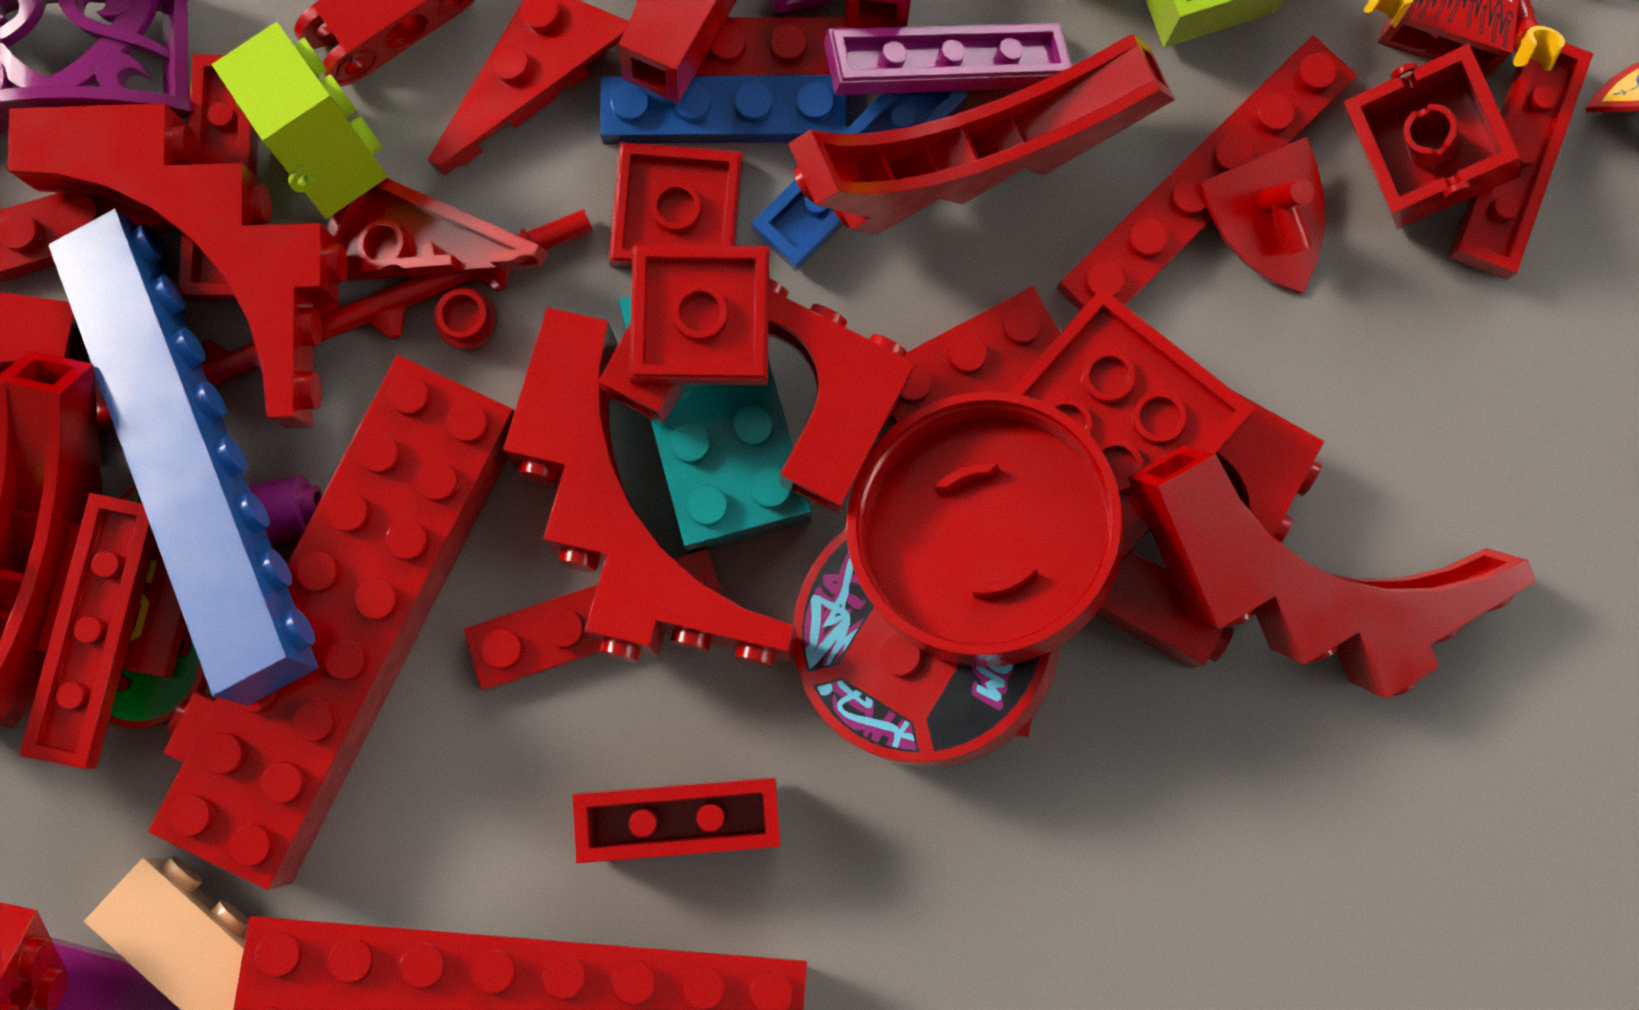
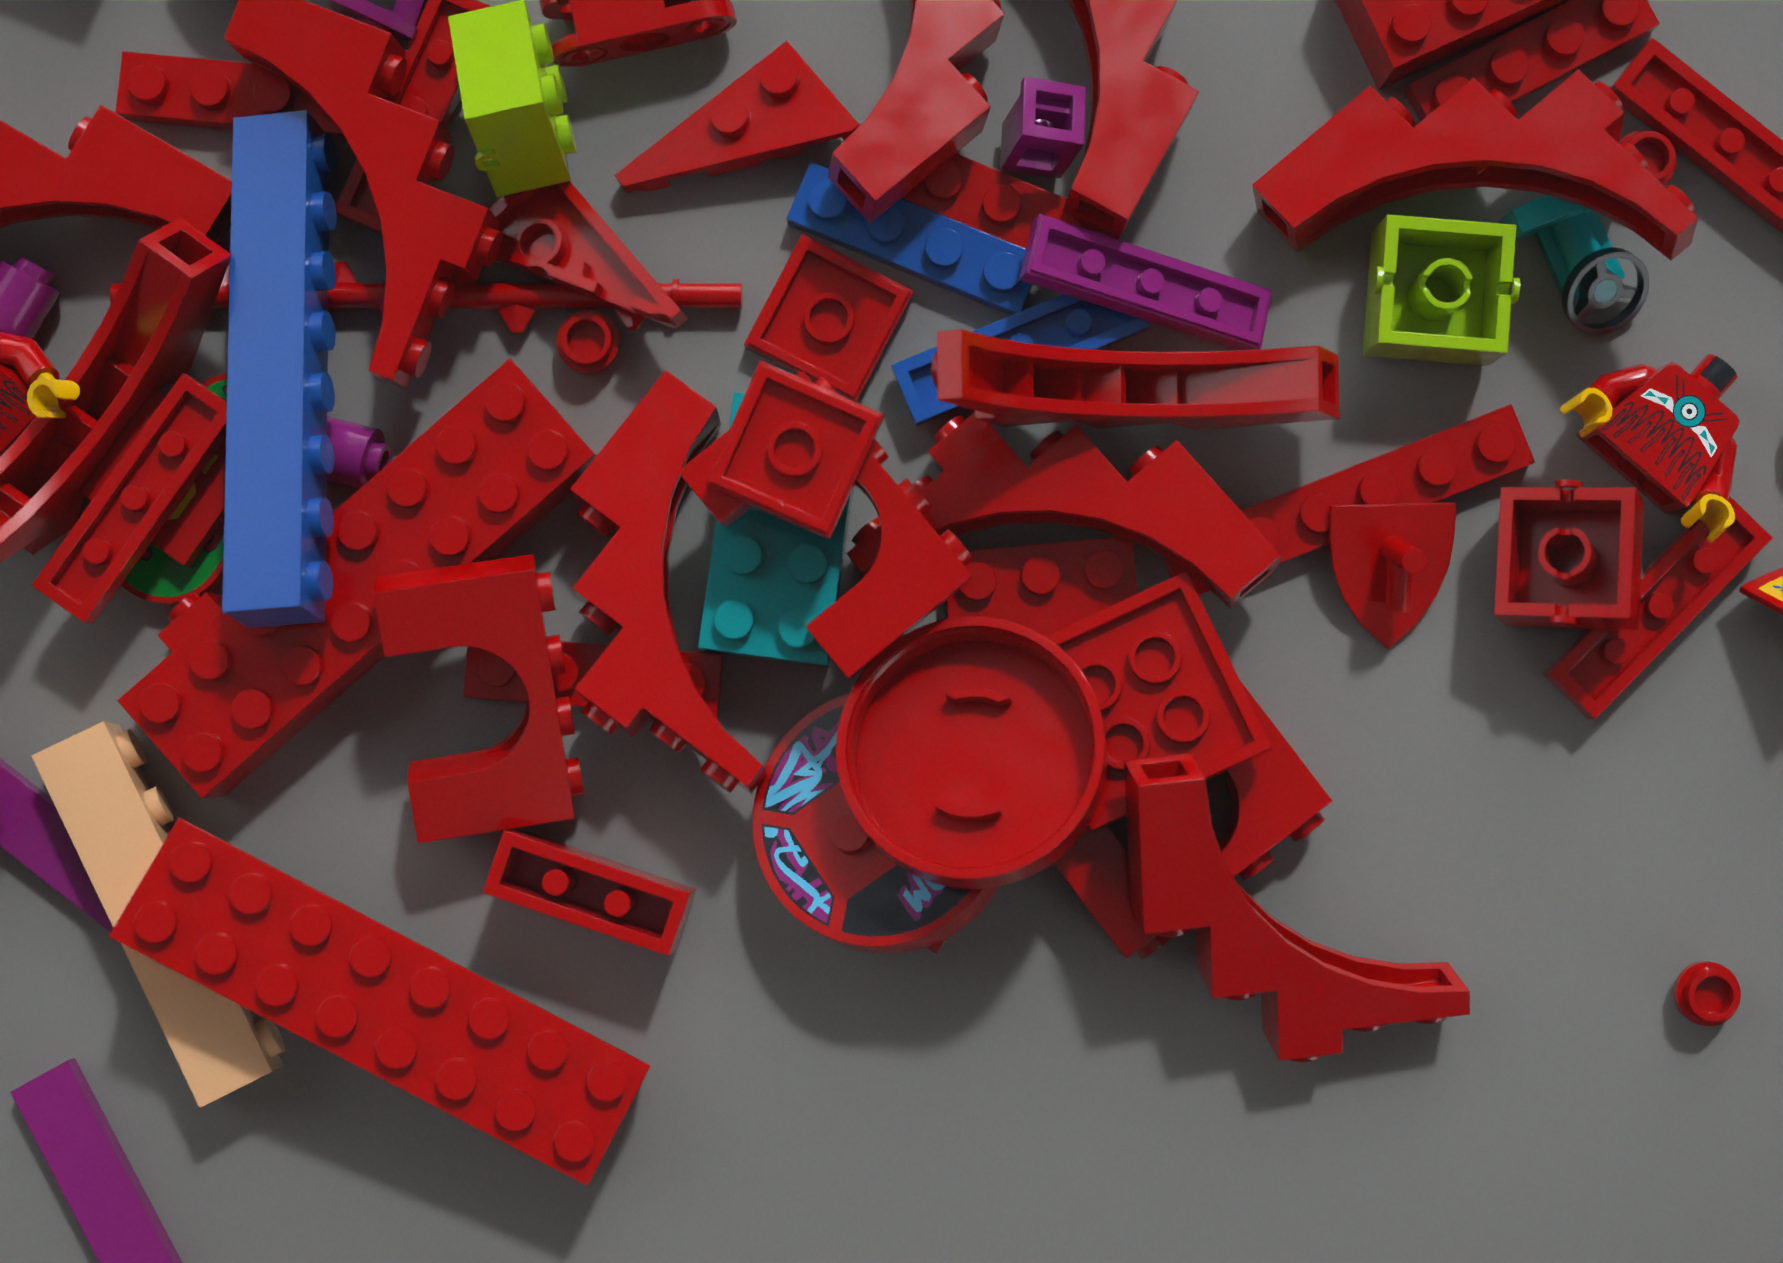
camera: 30 degrees right, 5 degrees up
(571, 734) = (499, 610): none -> red arch
(1056, 243) = (1163, 506): none -> red arch

